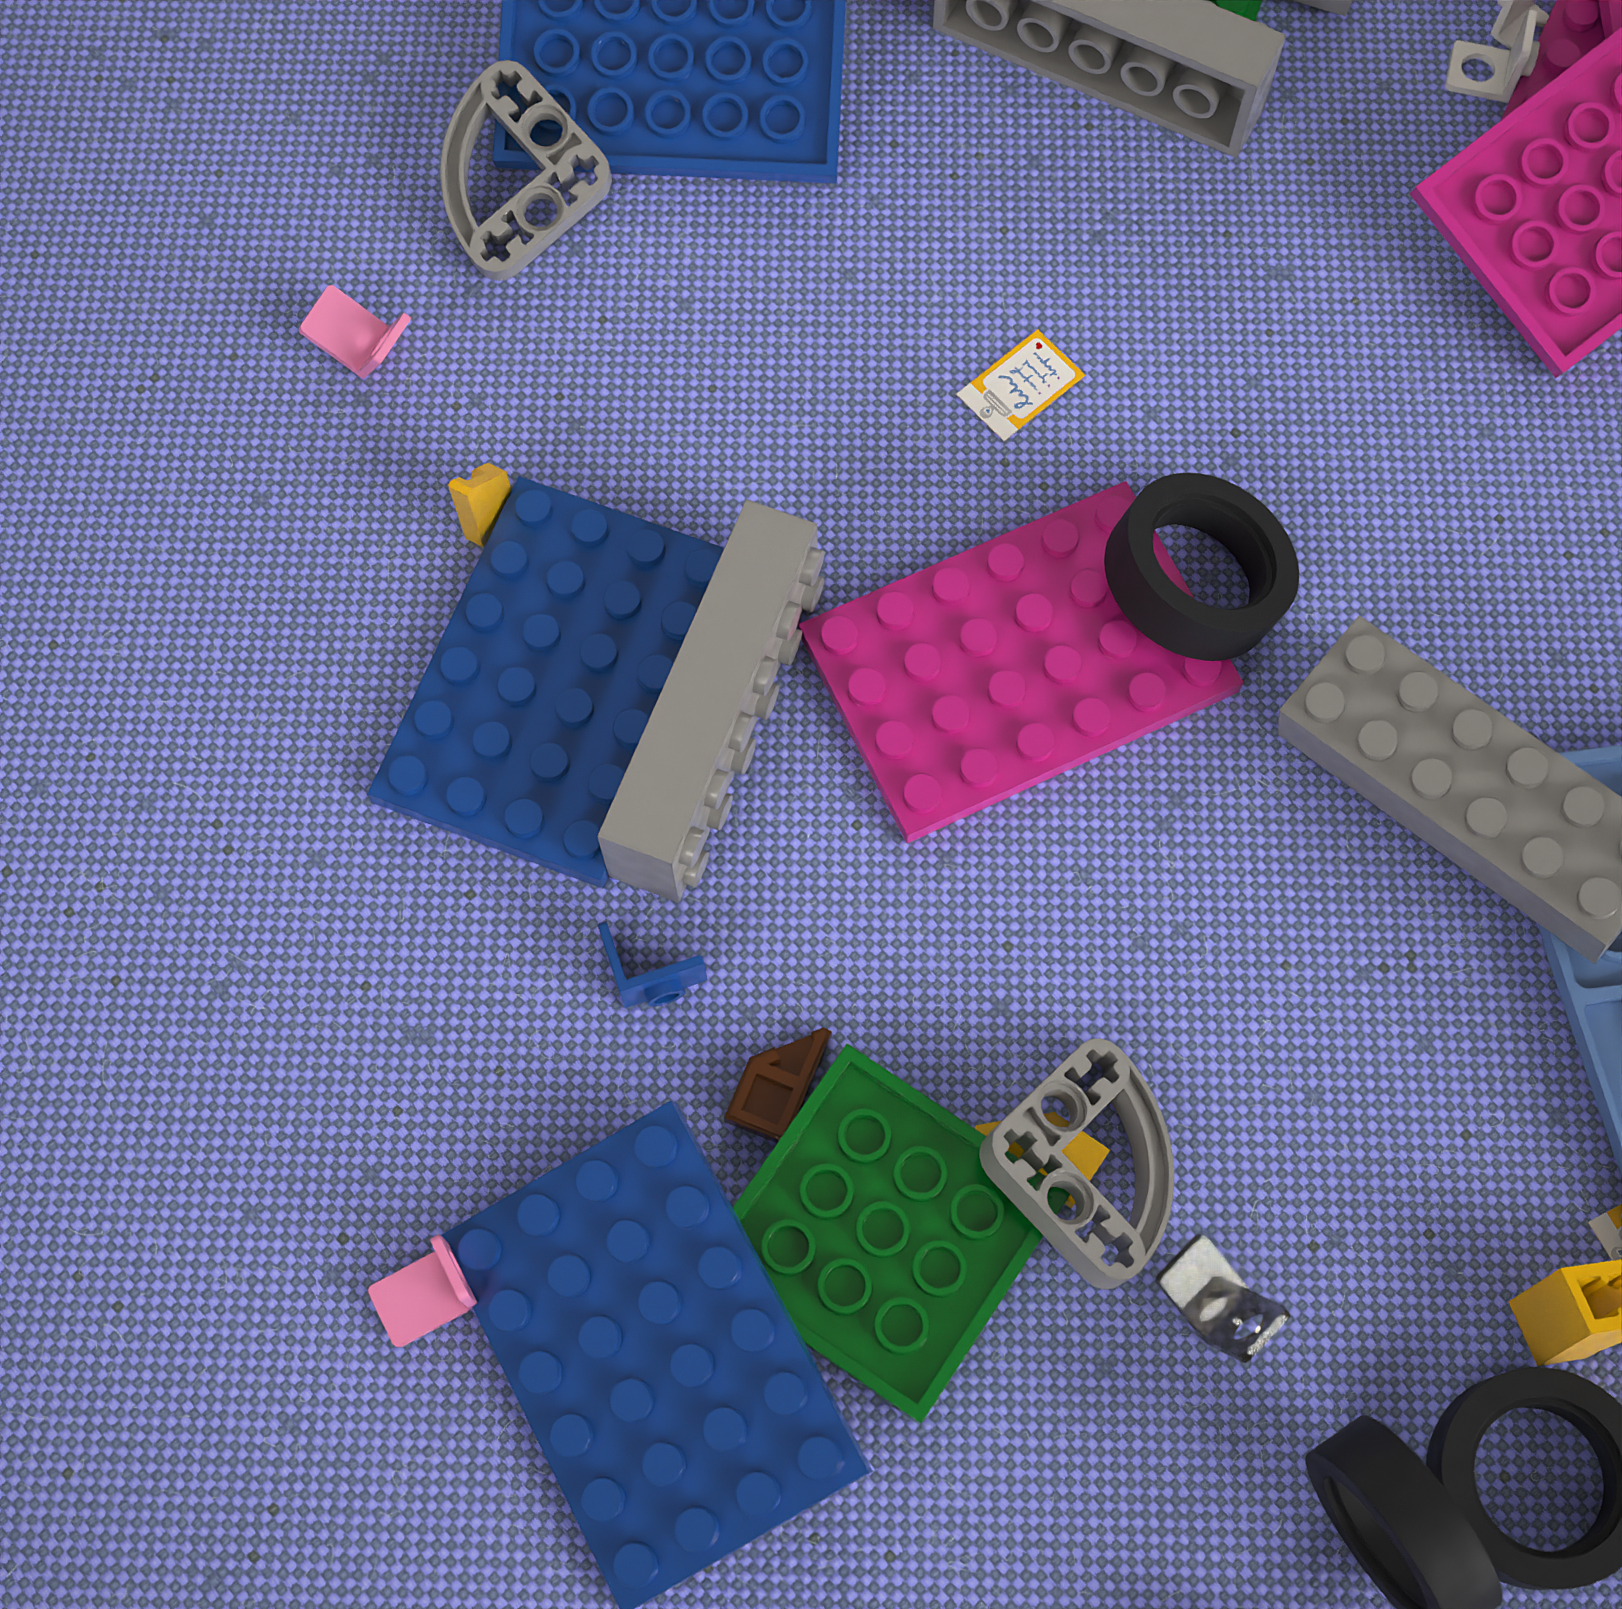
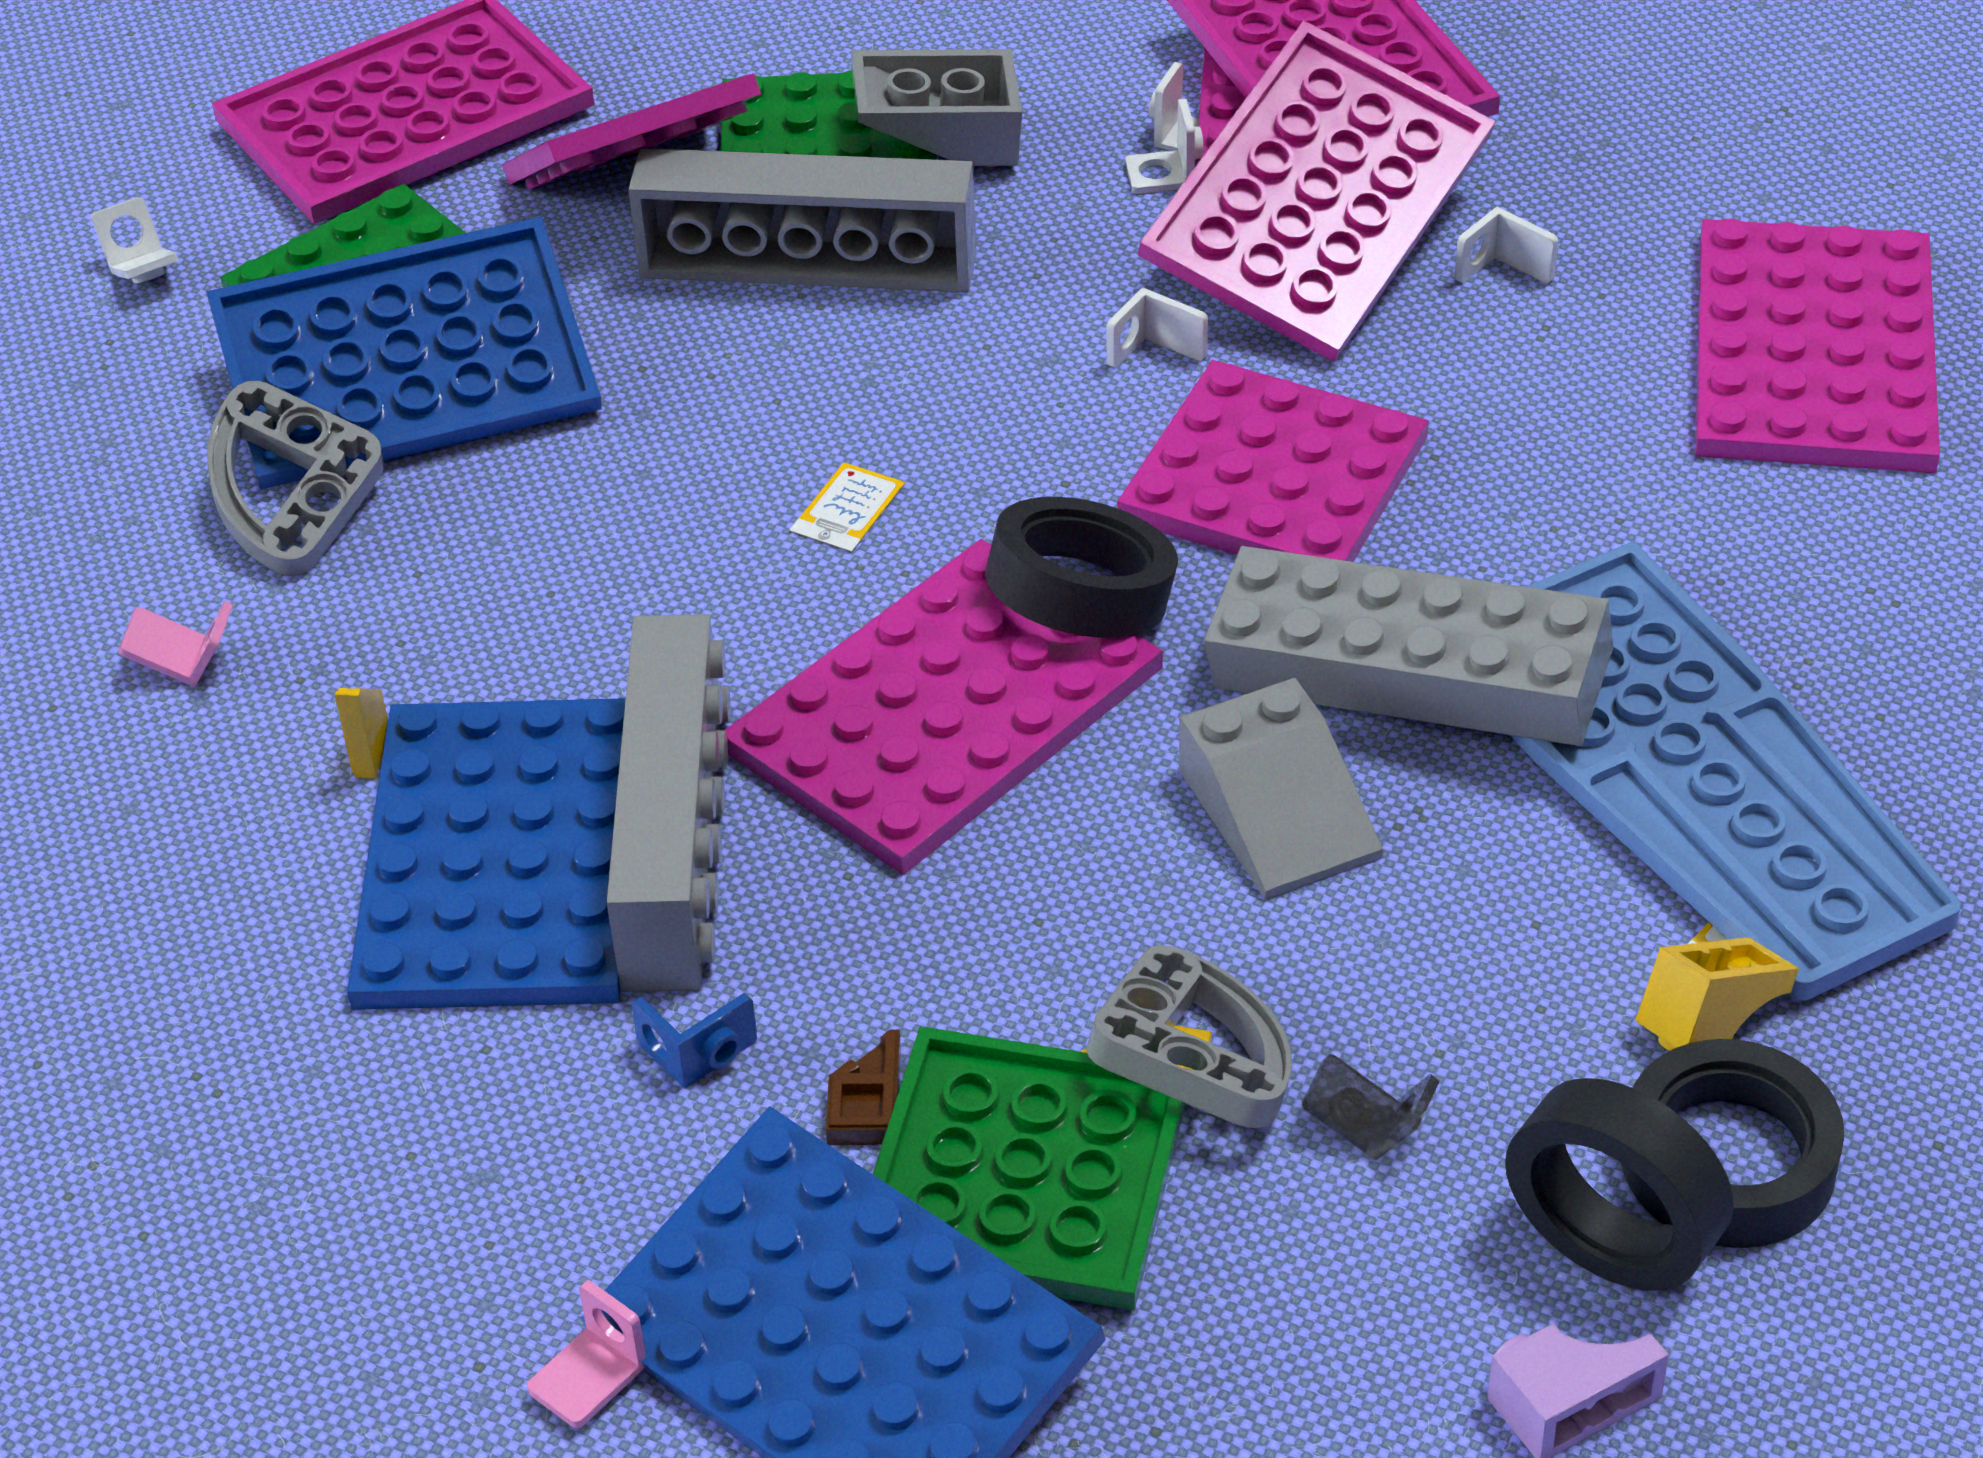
camera: 20 degrees left, 25 degrees down
(1285, 895) = (1277, 788): none -> light grey slope
(1404, 273) = (1160, 322): none -> white bracket
(1441, 496) = (1273, 466): none -> dark pink plate

